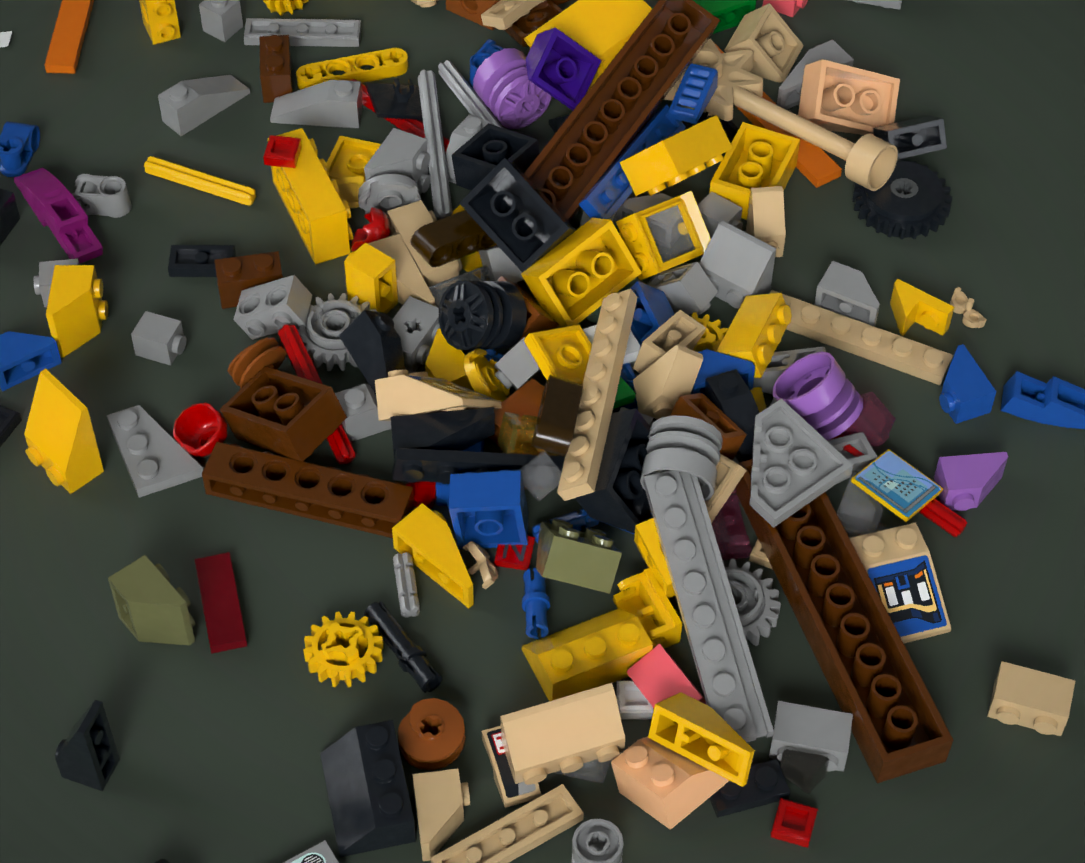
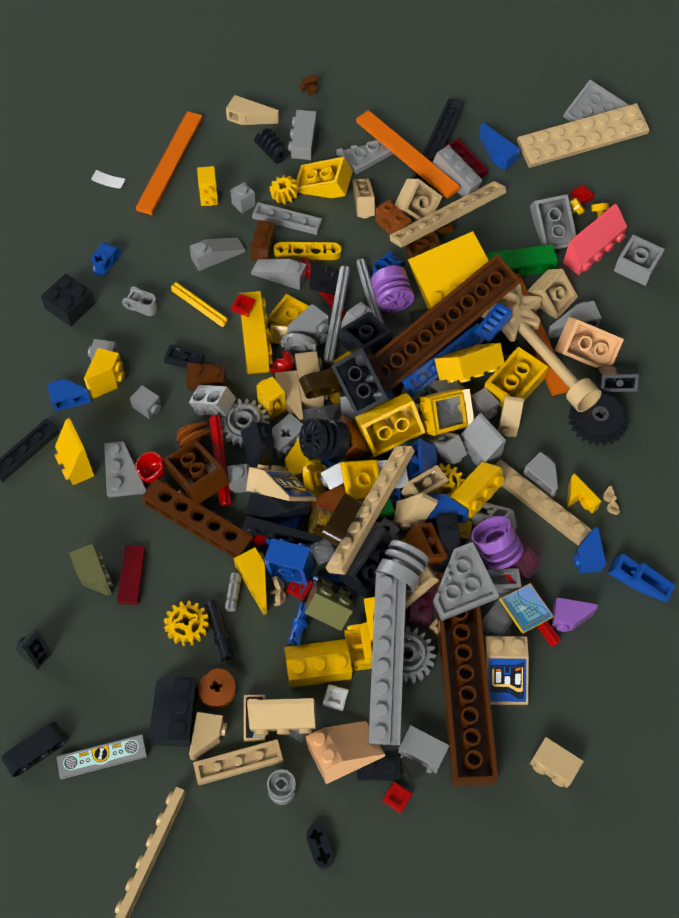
camera: 15 degrees right, 10 degrees up
(61, 213) = (115, 309): magenta slope -> none
(561, 67) = (420, 287): dark purple slope -> none
(661, 677) = (353, 696): coral panel -> none
(701, 737) = (357, 737): yellow slope -> none

